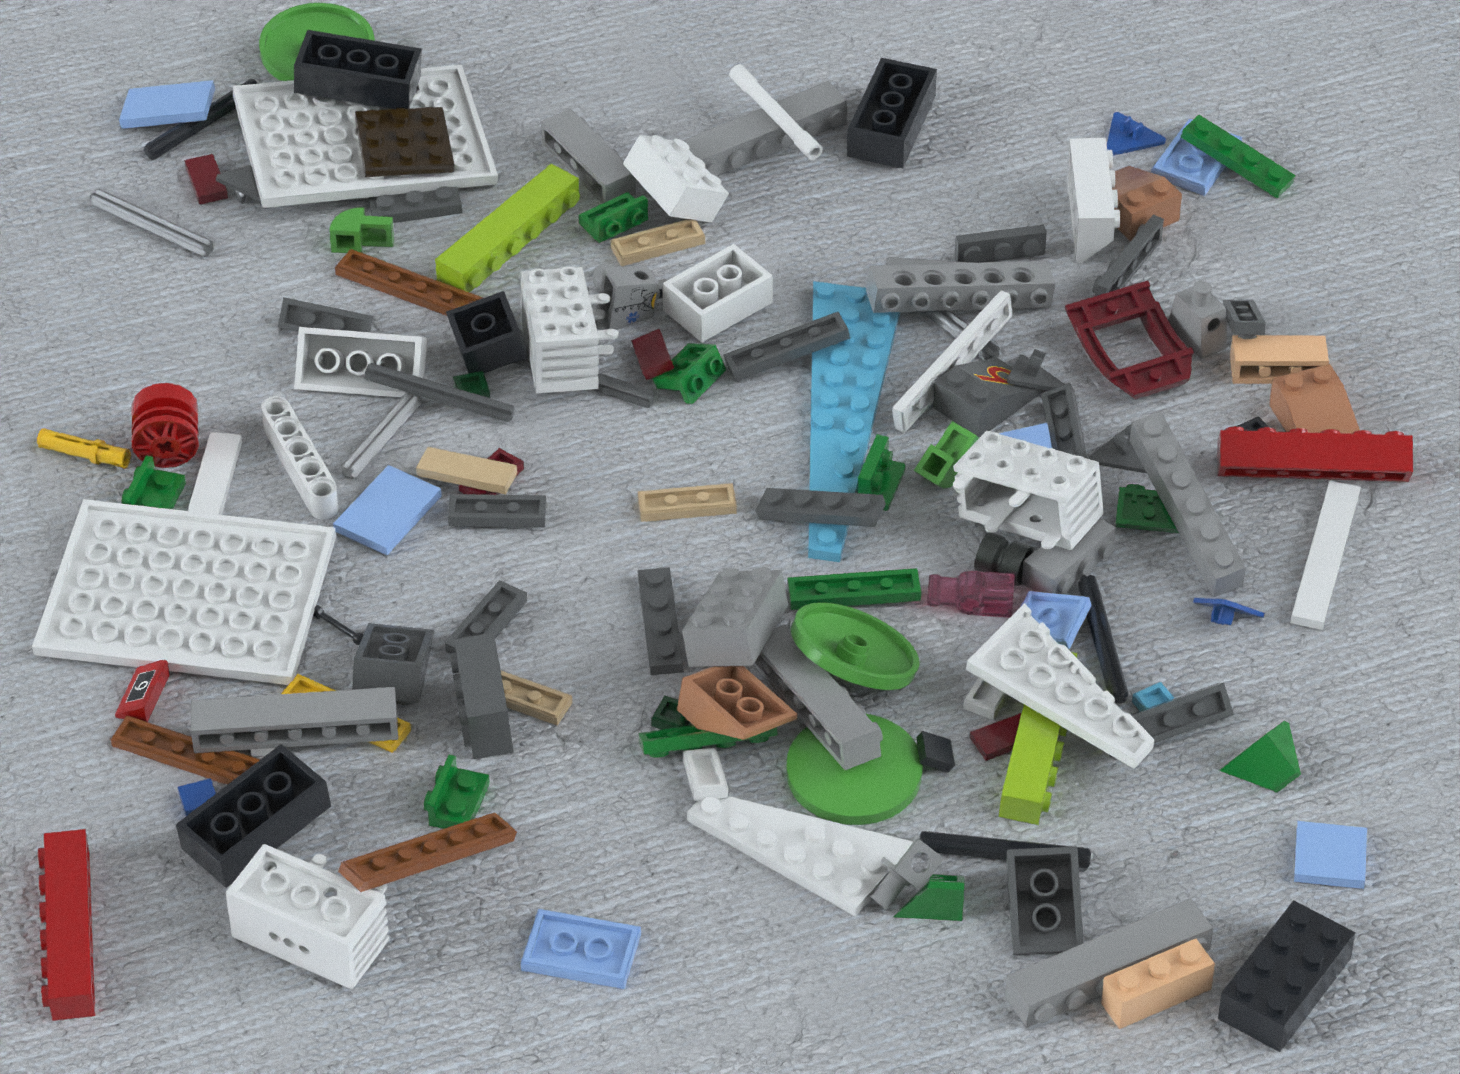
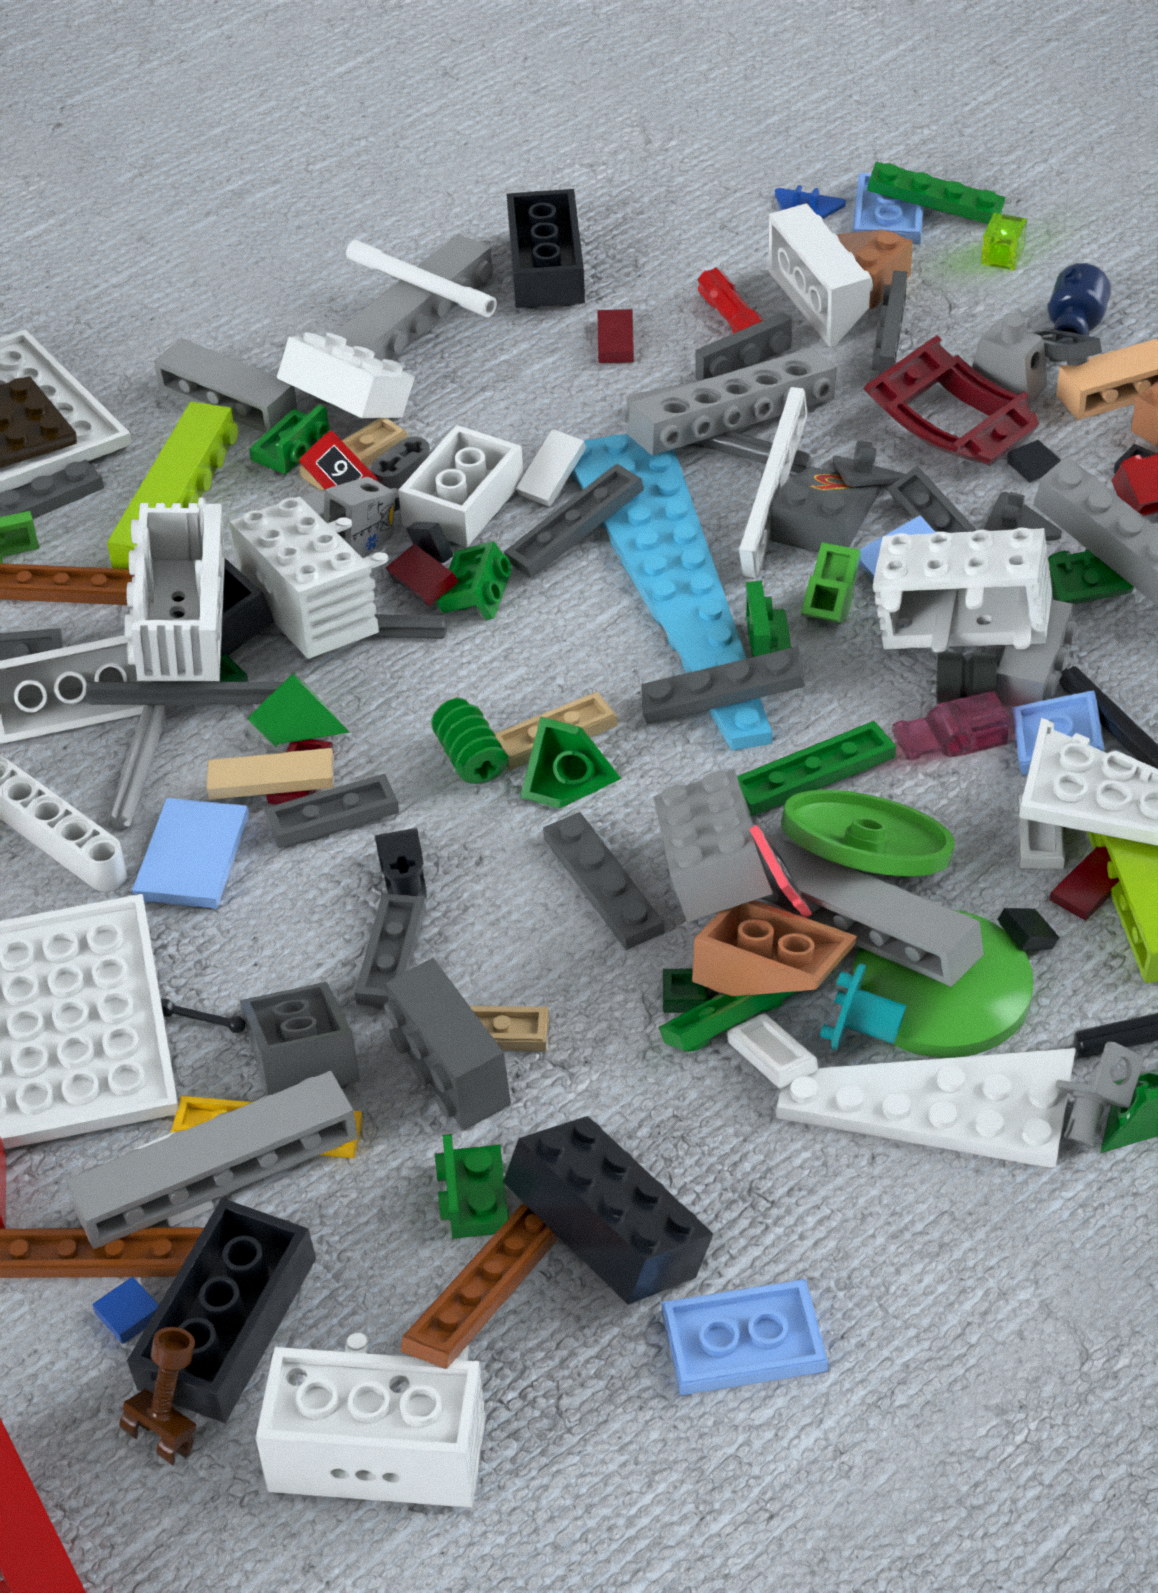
camera: 20 degrees left, 0 degrees up
(200, 825) = (171, 1352): none -> reddish brown bar
(462, 288) = (184, 557): none -> white piece
(506, 431) = (295, 714): none -> green slope
(526, 563) = (402, 862): none -> black piece
(530, 836) = (608, 1209): none -> black brick
(617, 491) = (469, 741): none -> green piece
(633, 247) = (333, 462): none -> slope
(671, 330) = (430, 539): none -> black tile
(675, 530) = (564, 765): none -> green slope
(683, 258) = (400, 461): none -> dark grey beam
(763, 651) = (780, 871): none -> coral piece
(775, 766) = (863, 1012): none -> teal piece
(795, 298) = (551, 468): none -> white tile
(910, 203) = (615, 336): none -> dark red tile
(1011, 193) = (722, 295): none -> red axle
(1173, 405) = (1032, 460): none -> black tile
(1266, 214) = (1004, 241): none -> clear neon green brick
(1288, 286) = (1079, 298): none -> dark blue piece

